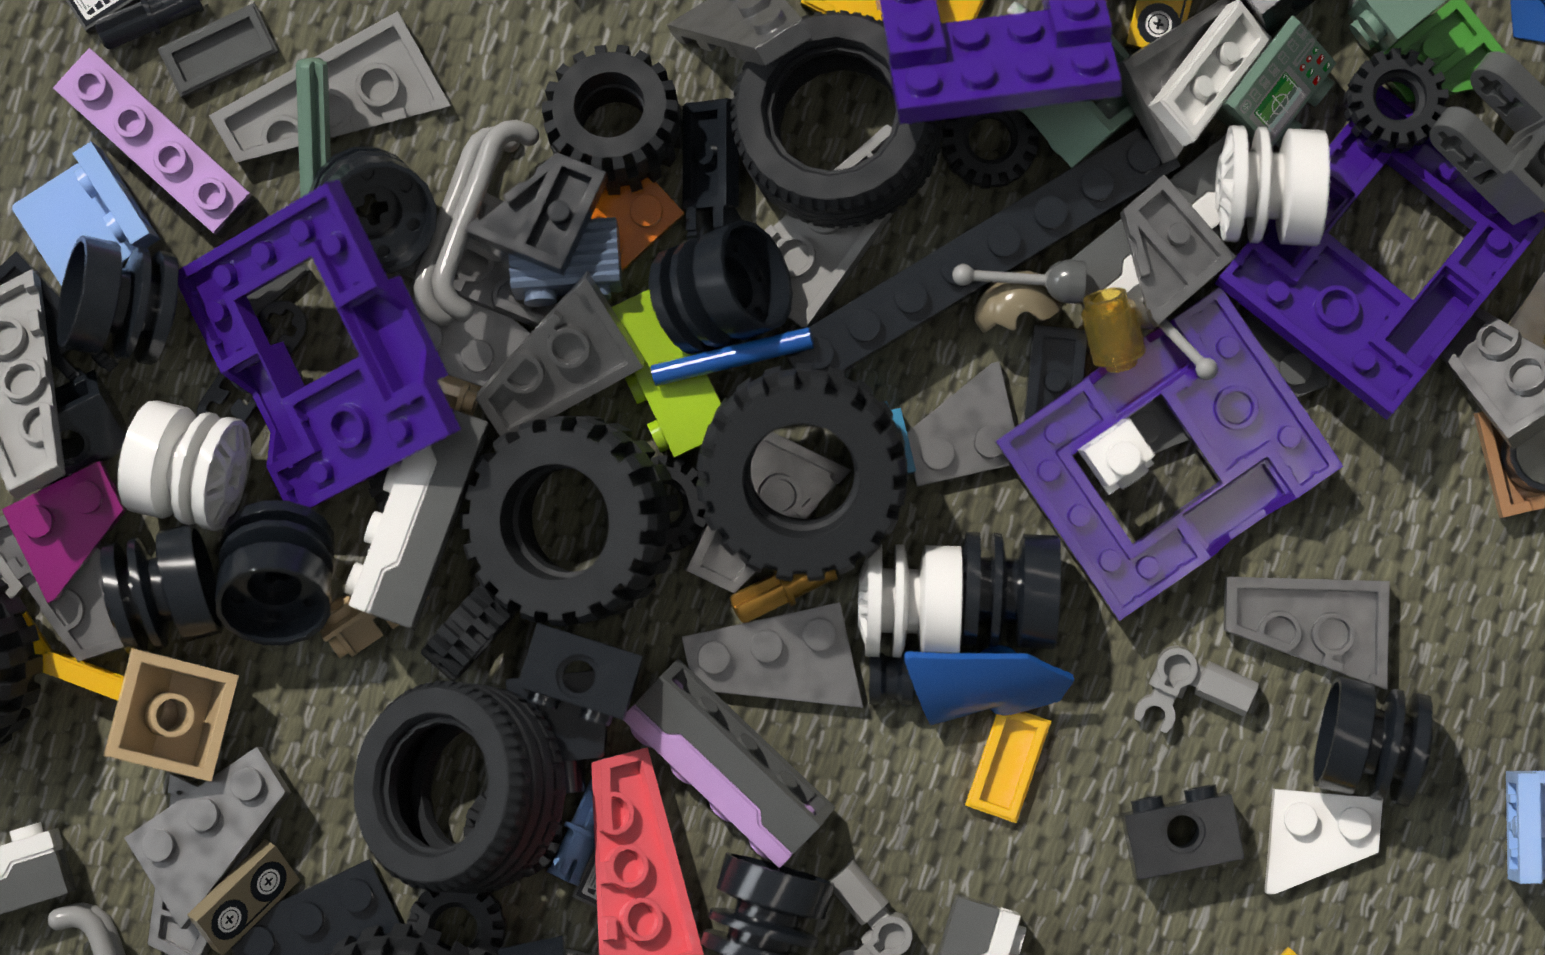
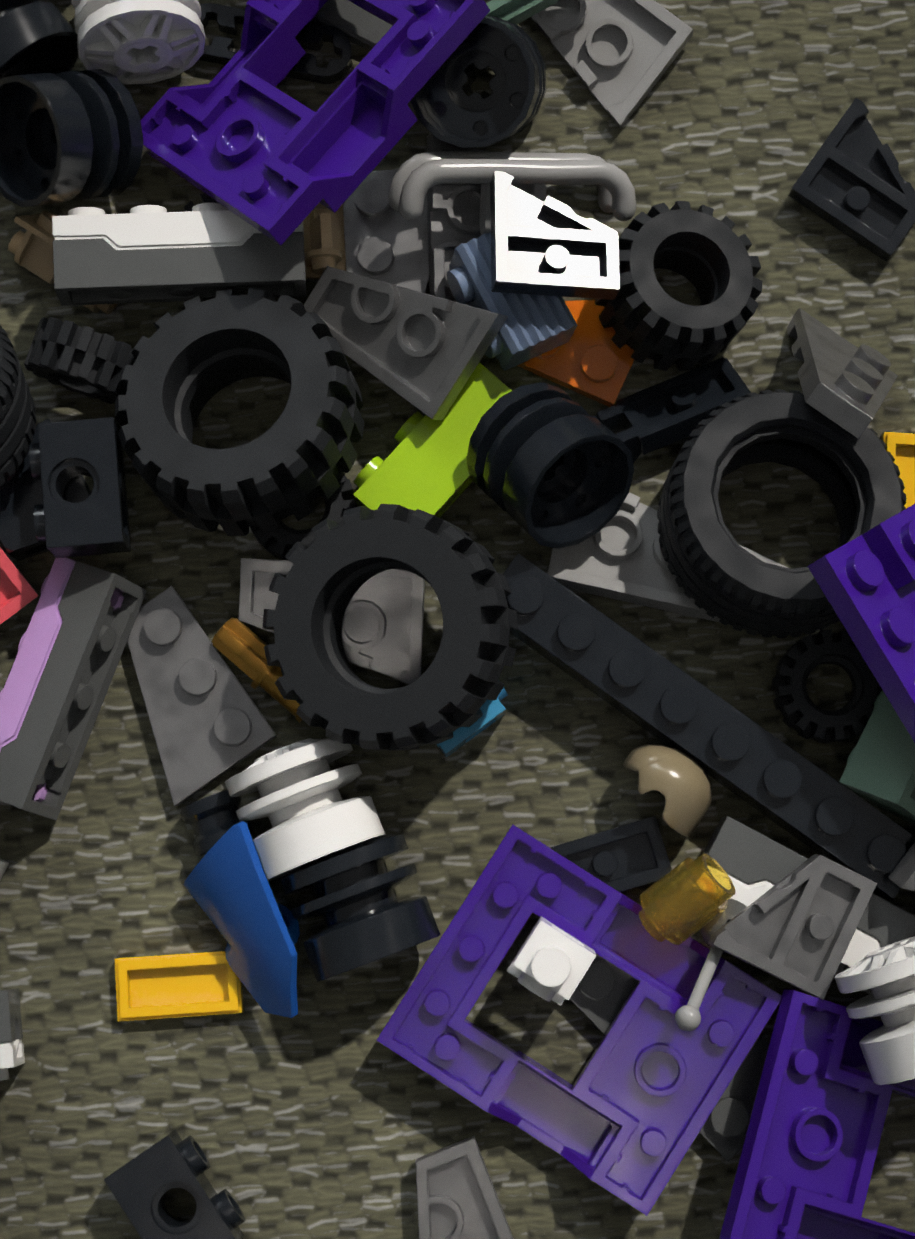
camera: 60 degrees right, 5 degrees down
(732, 356) = (483, 508): blue bar -> none
(963, 431) = (509, 787): flat silver wing -> none
(1063, 280) = (715, 822): hinge -> none
(1178, 669) = (353, 1128): light grey bar -> none

